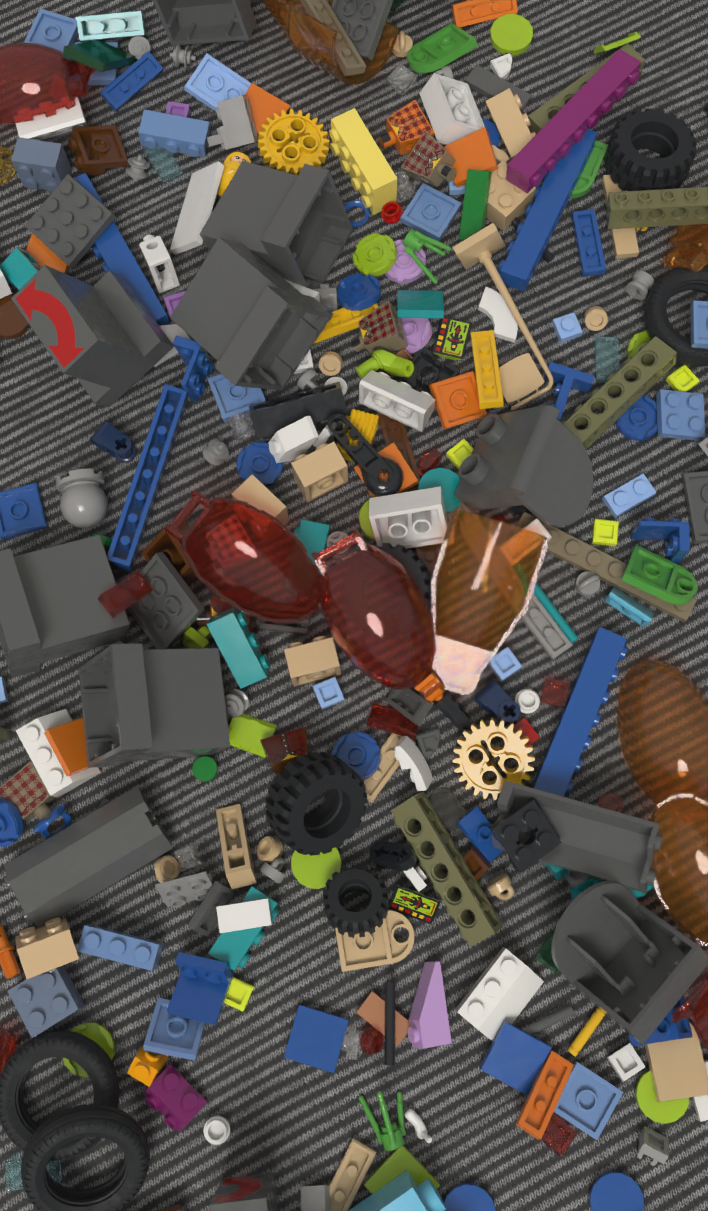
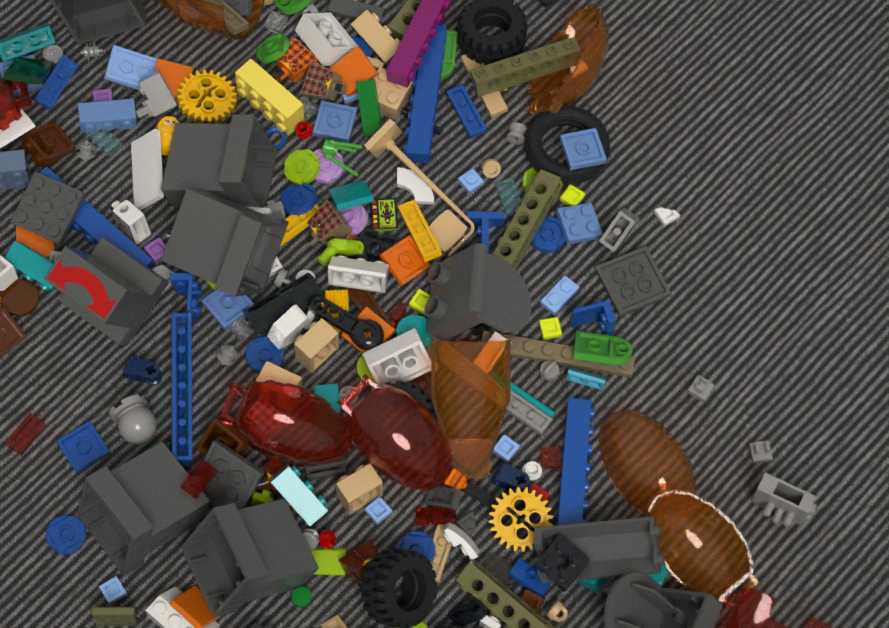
camera: 25 degrees left, 10 degrees down
(257, 709) = (327, 539): none -> red plate
(330, 363) = (295, 260): tan tile -> none
(388, 106) = (273, 48): none -> bright green tile

